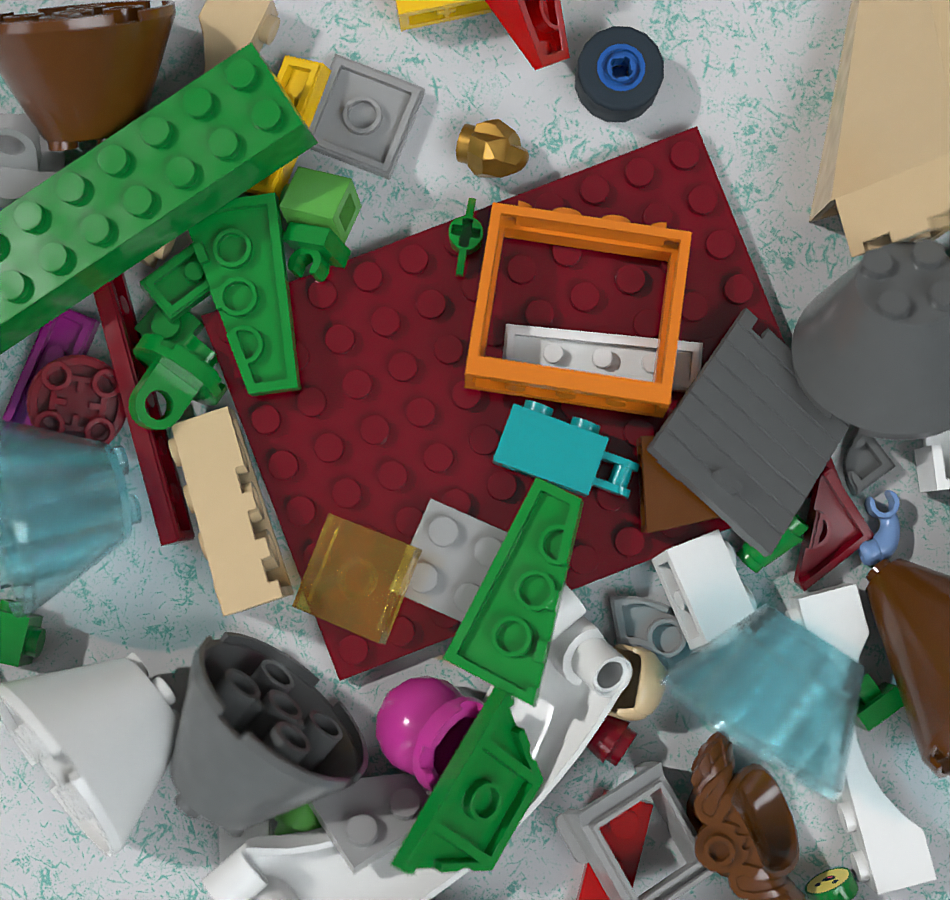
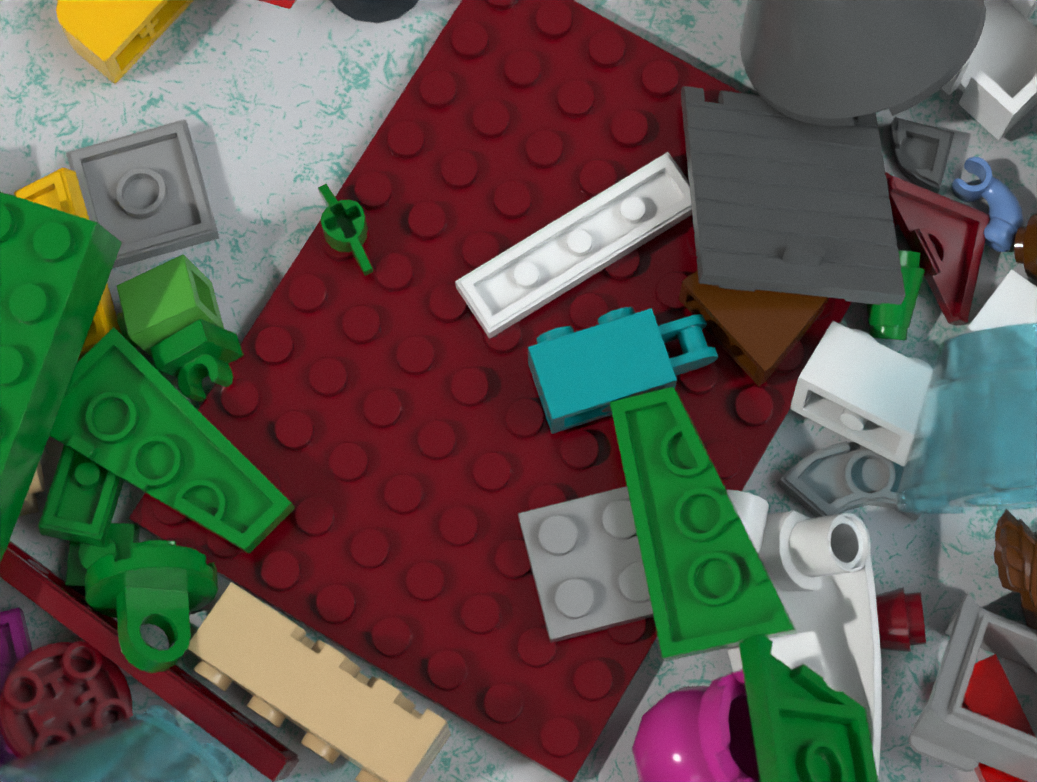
camera: 35 degrees left, 10 degrees down
(357, 578) = (507, 652): clear yellow tile -> none
(491, 149) = (302, 126): pearl gold rock -> none
(604, 234) = (564, 288): orange window -> none
(644, 690) = (891, 536): tan hair -> none

